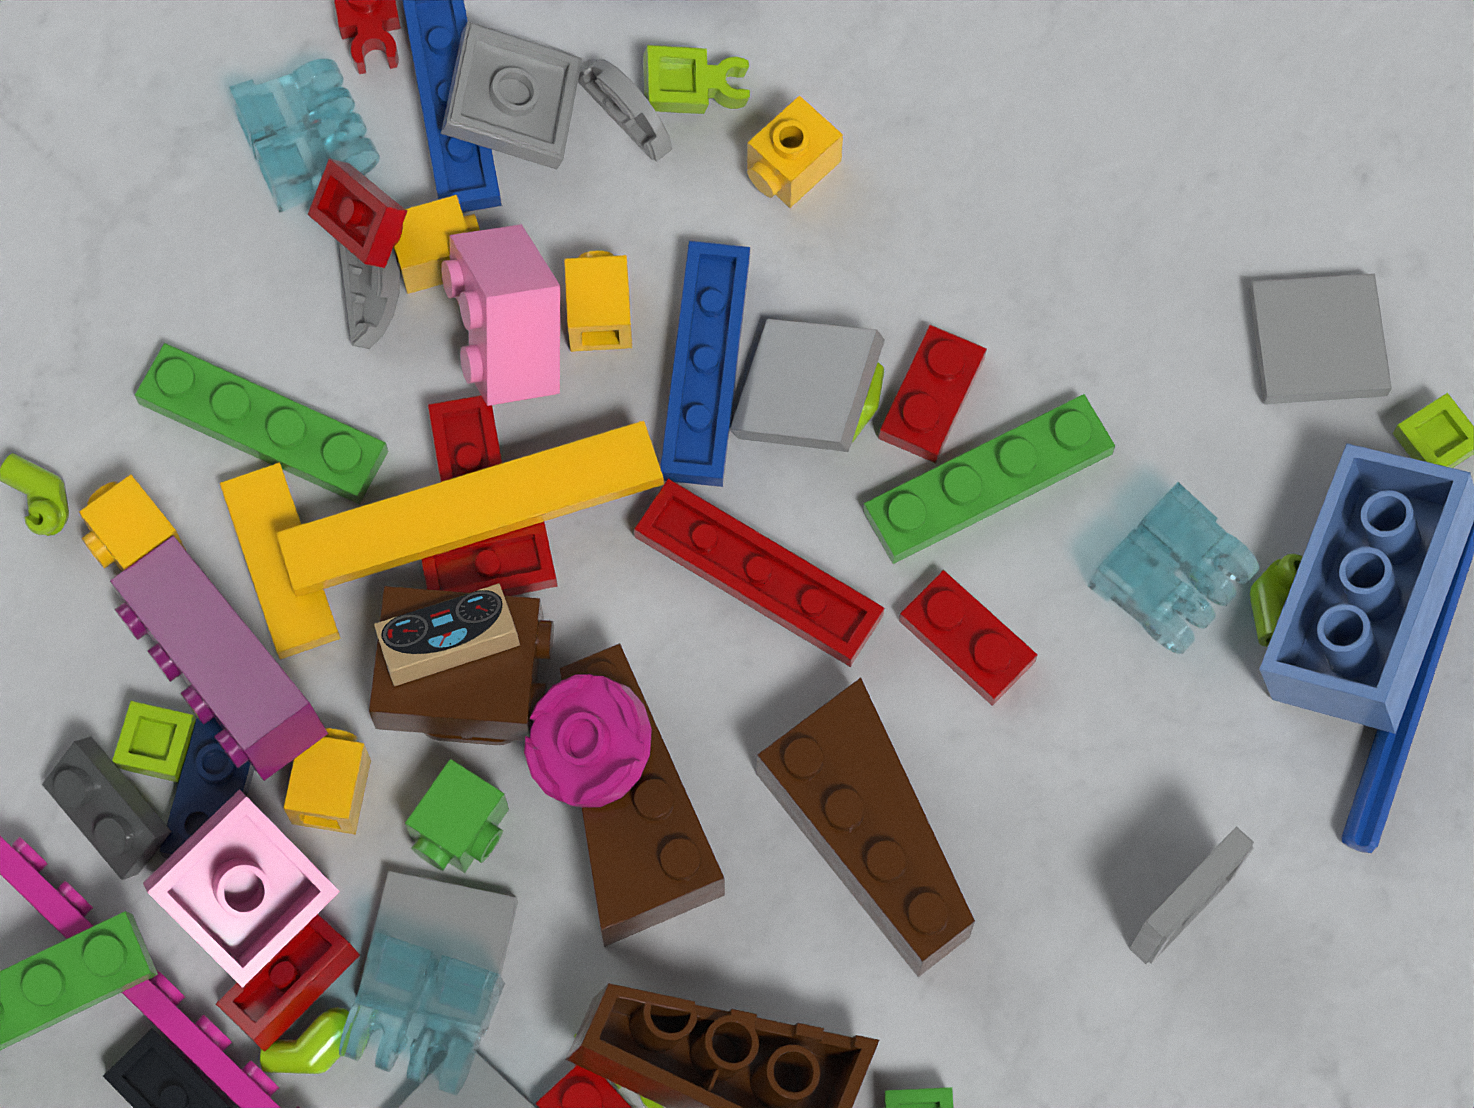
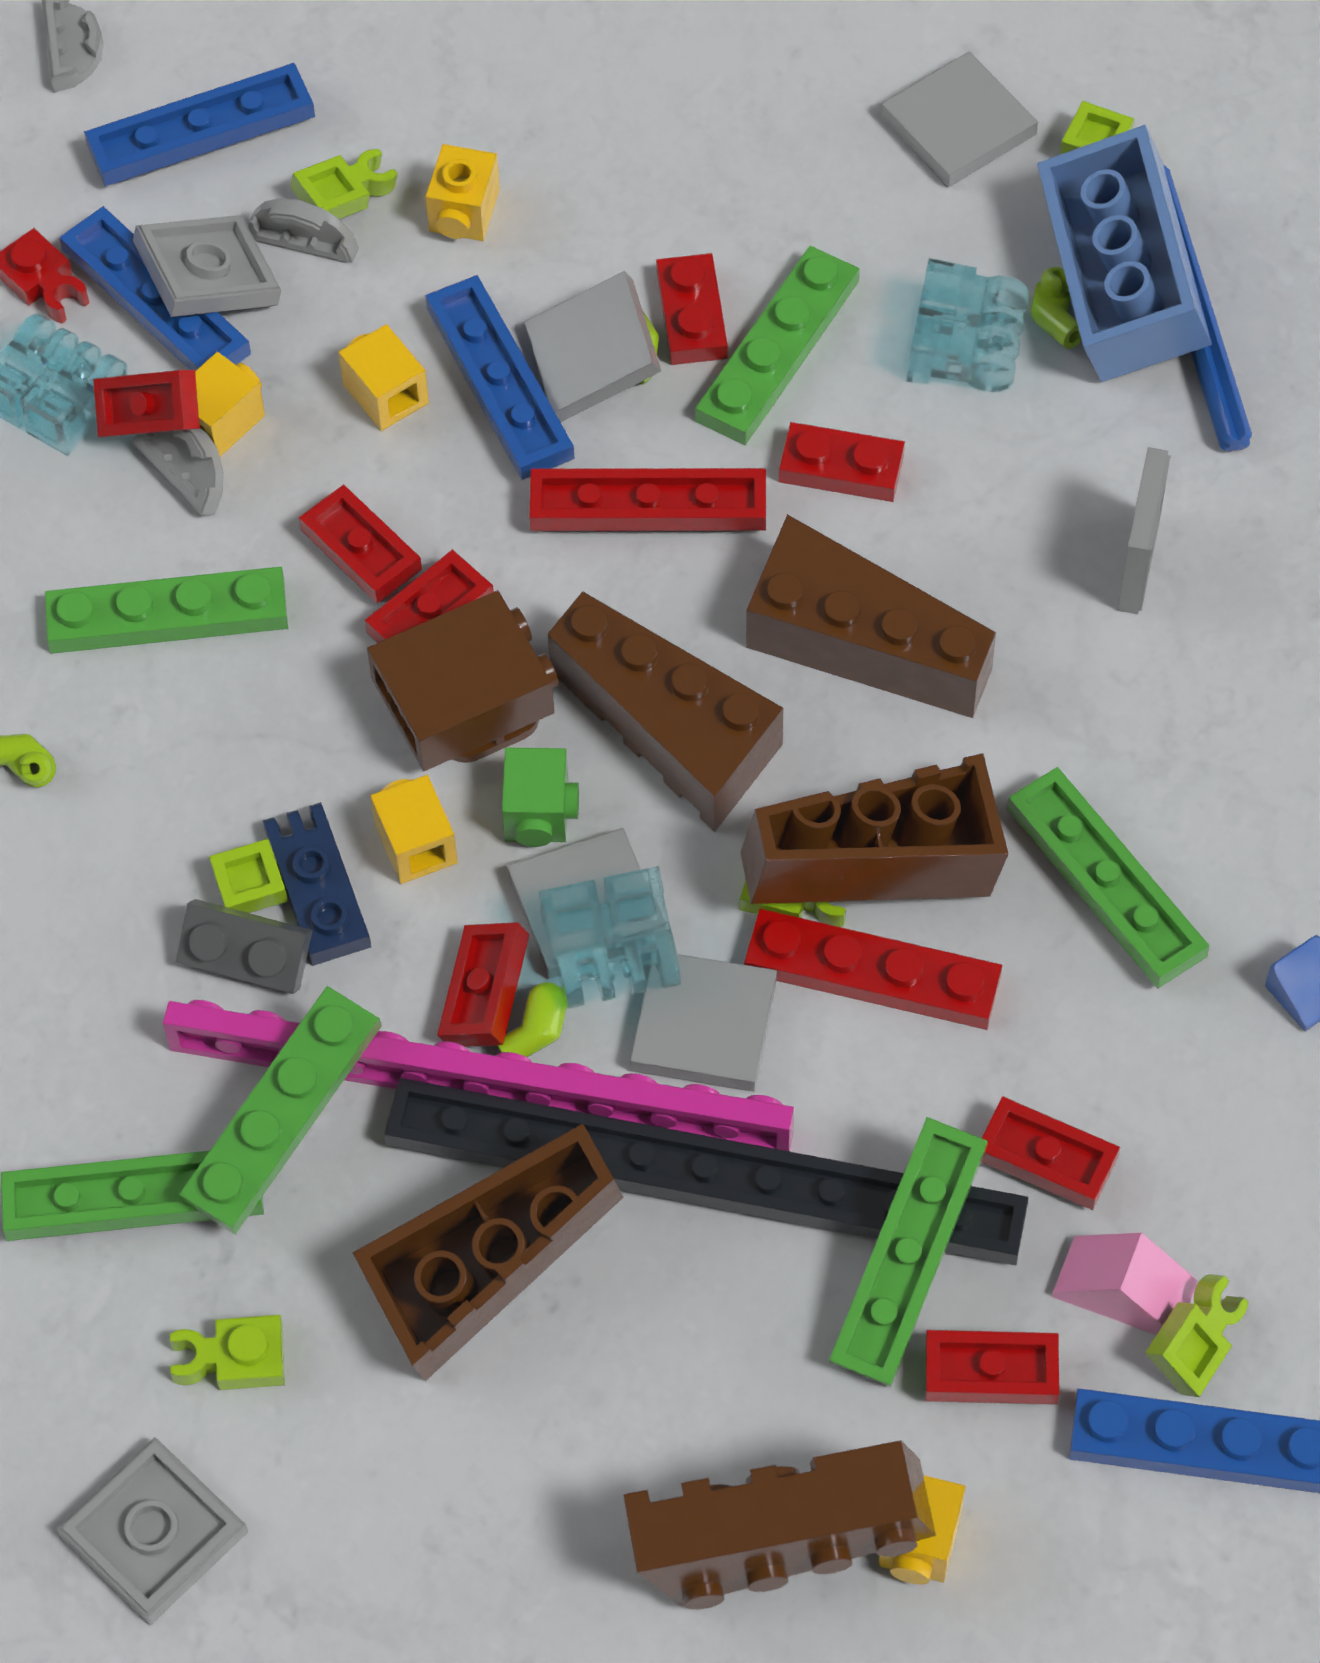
camera: 30 degrees left, 10 degrees down
(124, 524) = (118, 737): yellow brick -> none
(218, 658) = (264, 777): magenta brick -> none
(240, 888) = (403, 929): bright pink brick -> none
(260, 508) = (254, 698): yellow tile -> none
(447, 634) = (446, 649): slope -> none
(469, 508) = (388, 570): yellow tile -> none
(510, 312) = (327, 405): bright pink brick -> none
(588, 741) = (610, 664): dark pink tile -> none

